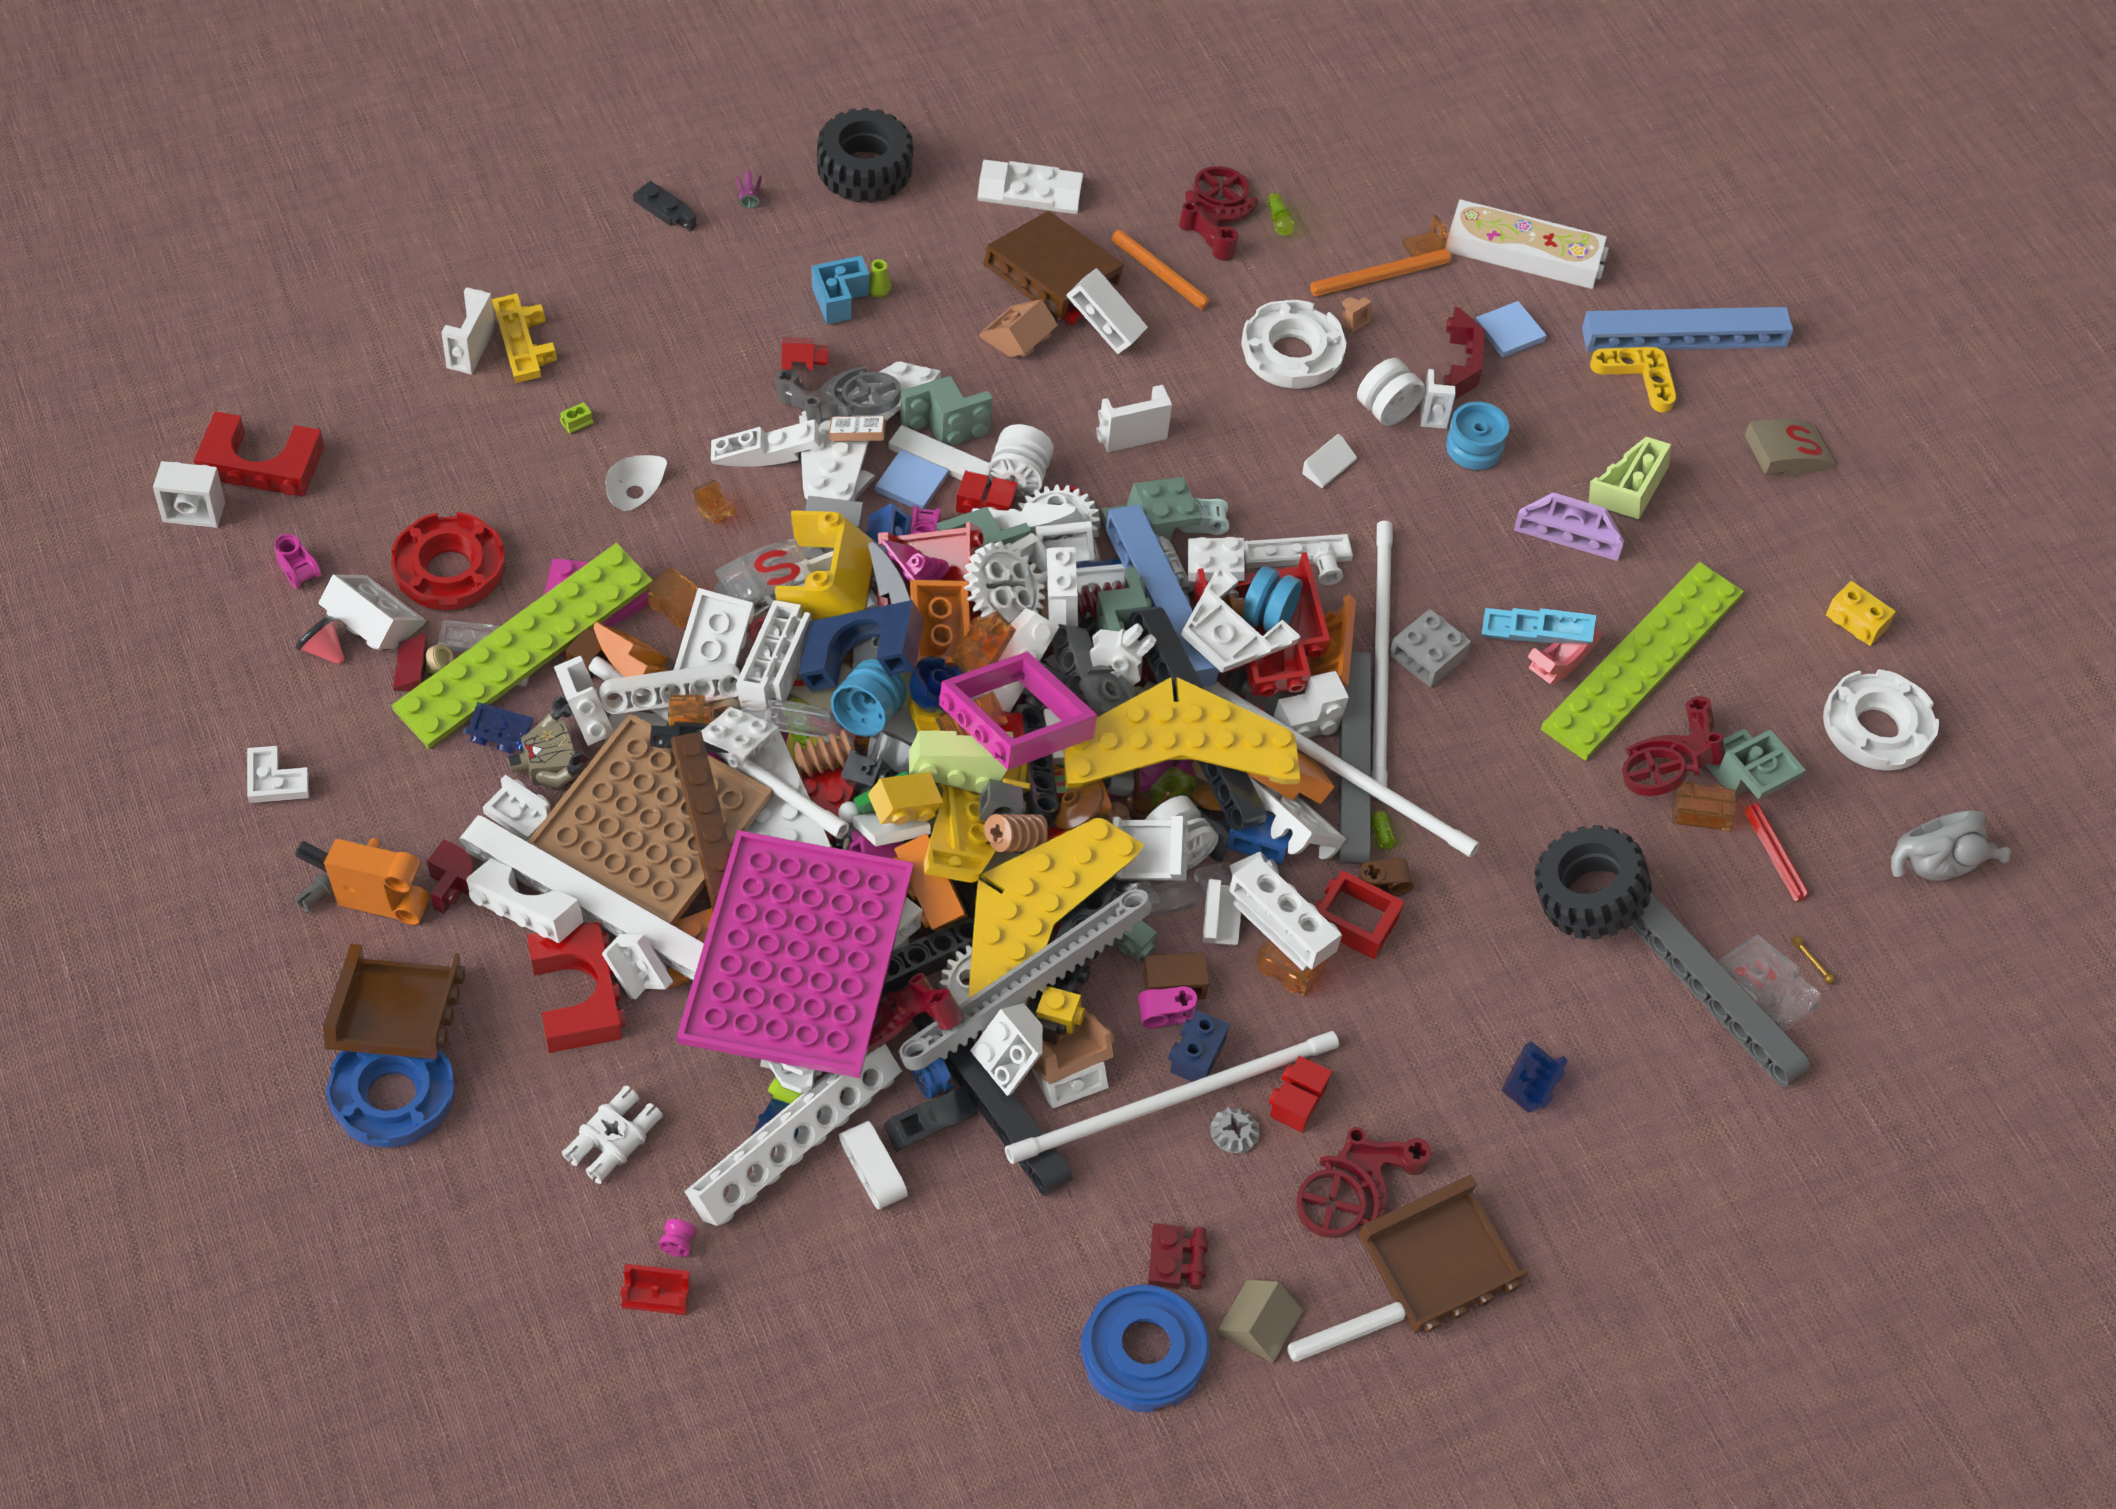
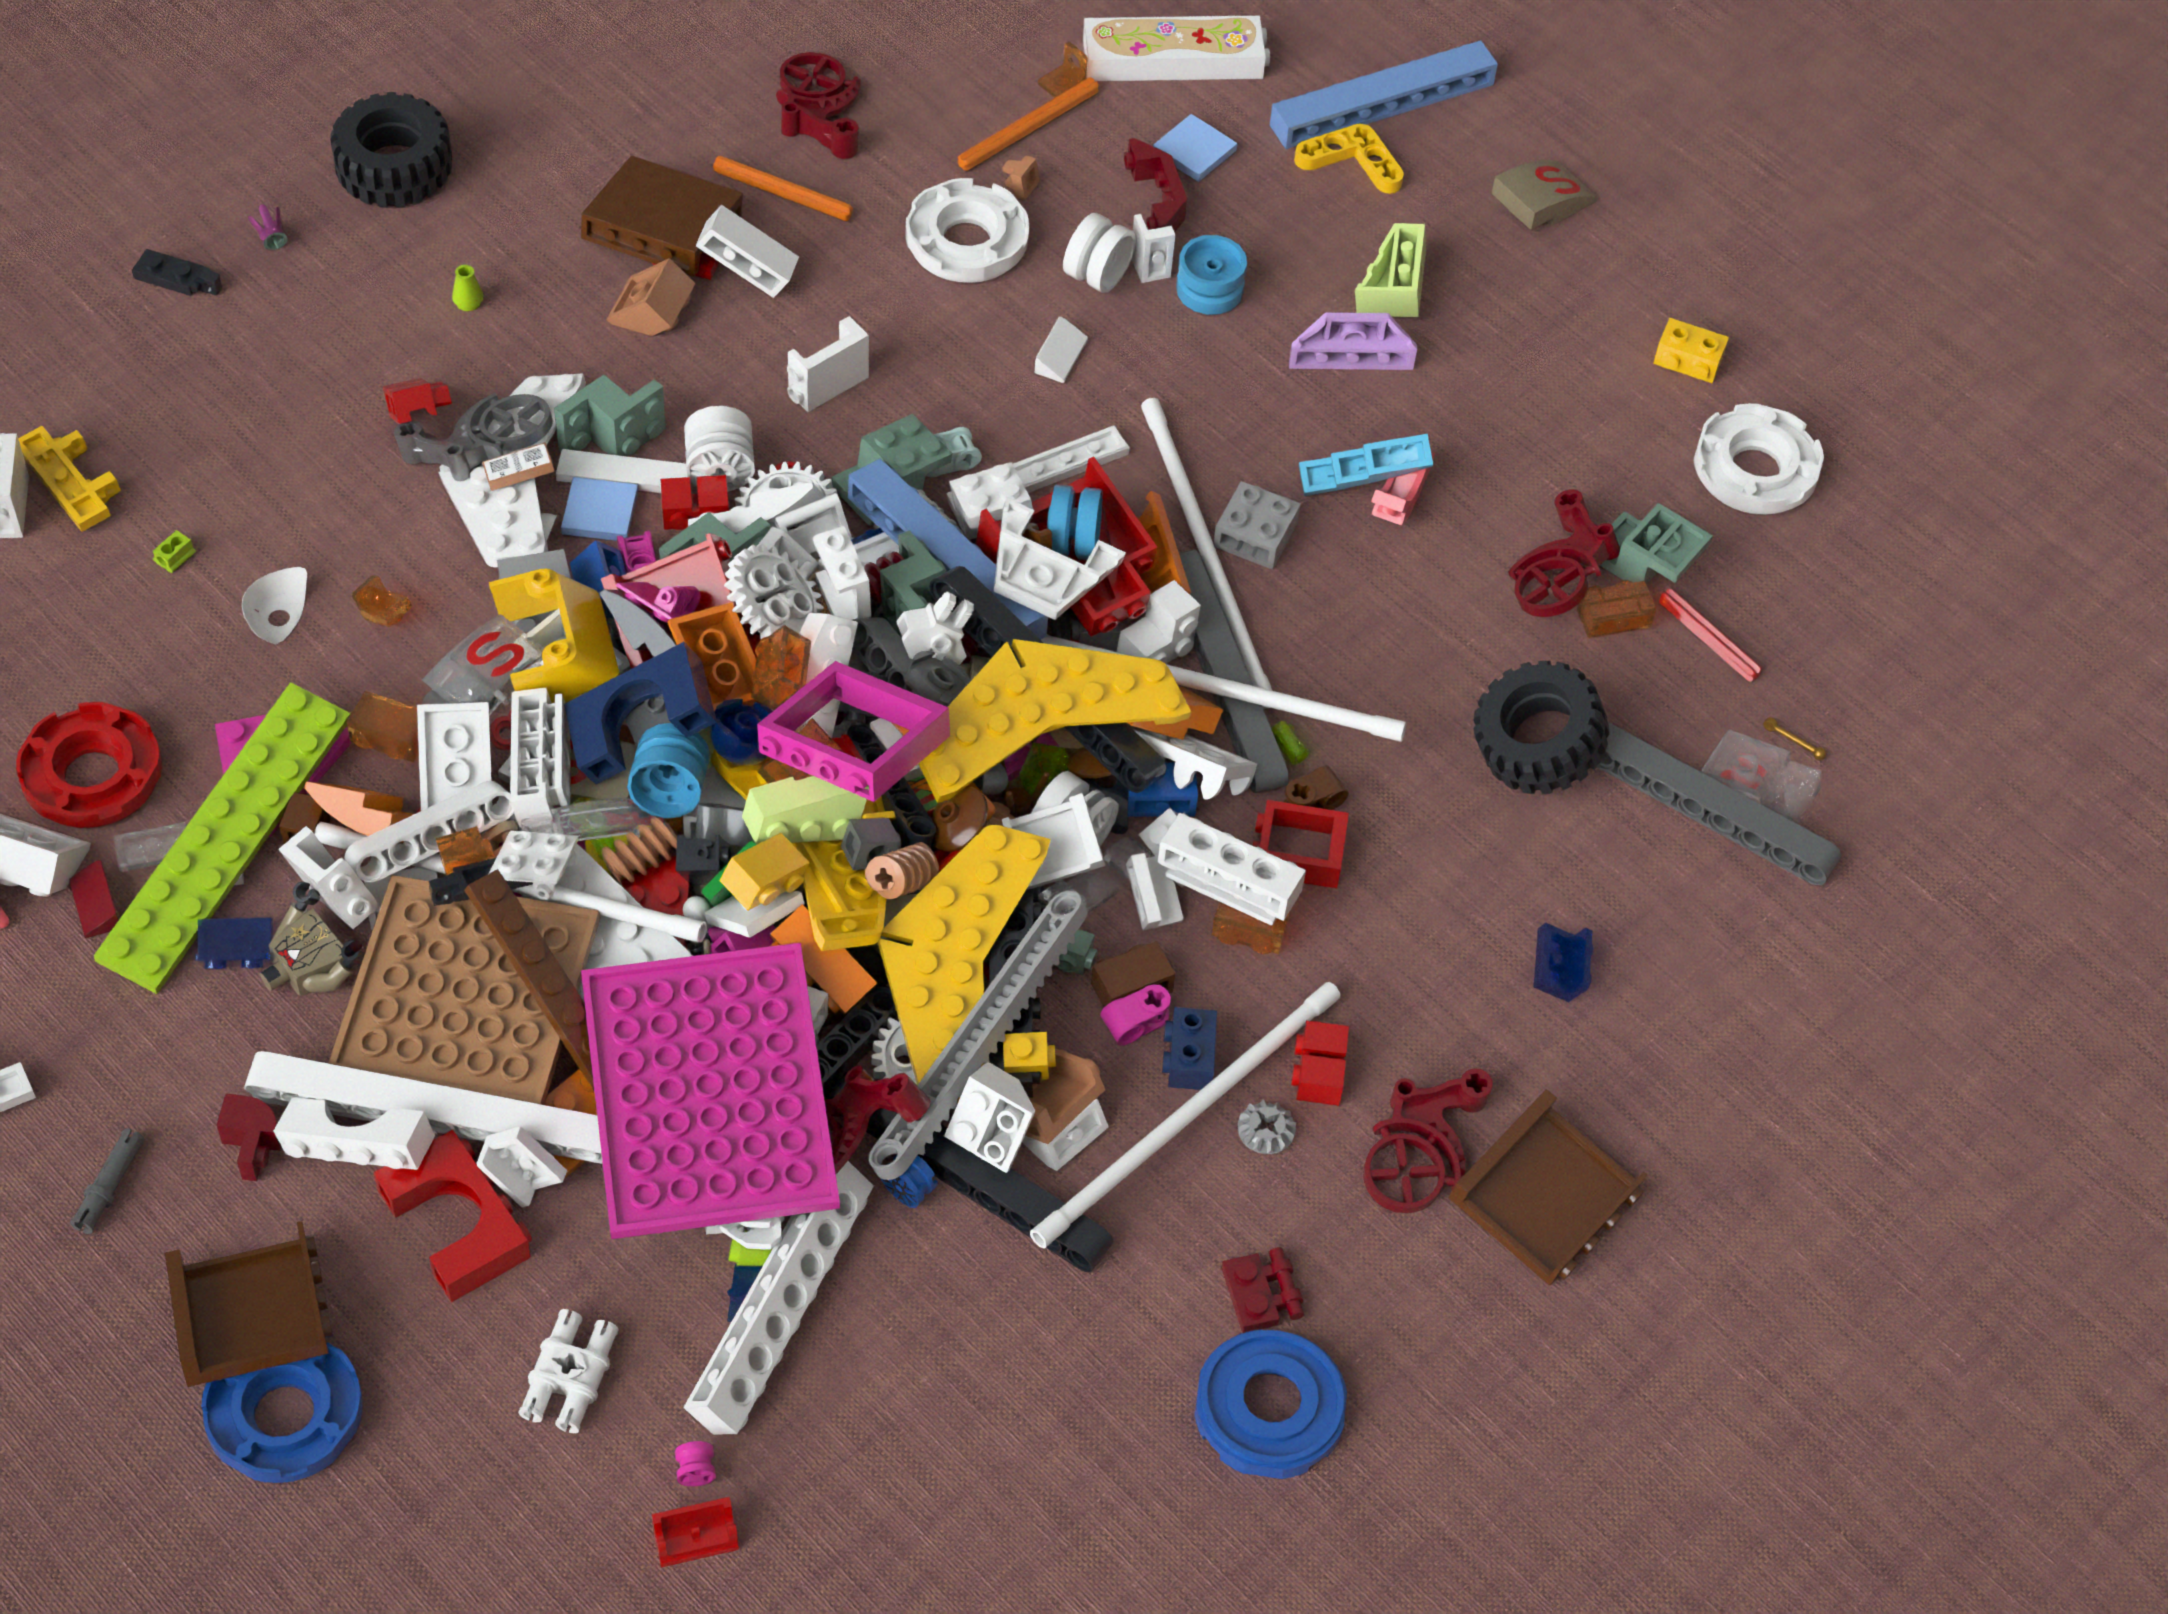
camera: 20 degrees left, 0 degrees up
(371, 878) = (160, 1167): orange piece -> none
(438, 657) = (126, 884): tan tile -> none
(517, 808) = (298, 1029): white bracket -> none
(759, 448) = (409, 524): white slope -> none
(836, 286) = (422, 310): dark azure brick -> none
(873, 1165) = (884, 1303): white beam -> none
(929, 1118) = (926, 1229): black slope -> none
(1030, 186) = (596, 134): white piece -> none
(1261, 1318) = (1381, 1325): dark tan slope -> none
(1280, 214) = (891, 89): clear neon green pin -> none
(1327, 566) = (1106, 459): white bush -> none
(1346, 1331) = (1478, 1308): white axle -> none
(1641, 661) = (1484, 472): lime plate -> none
(1947, 847) = (1884, 573): light grey piece -> none

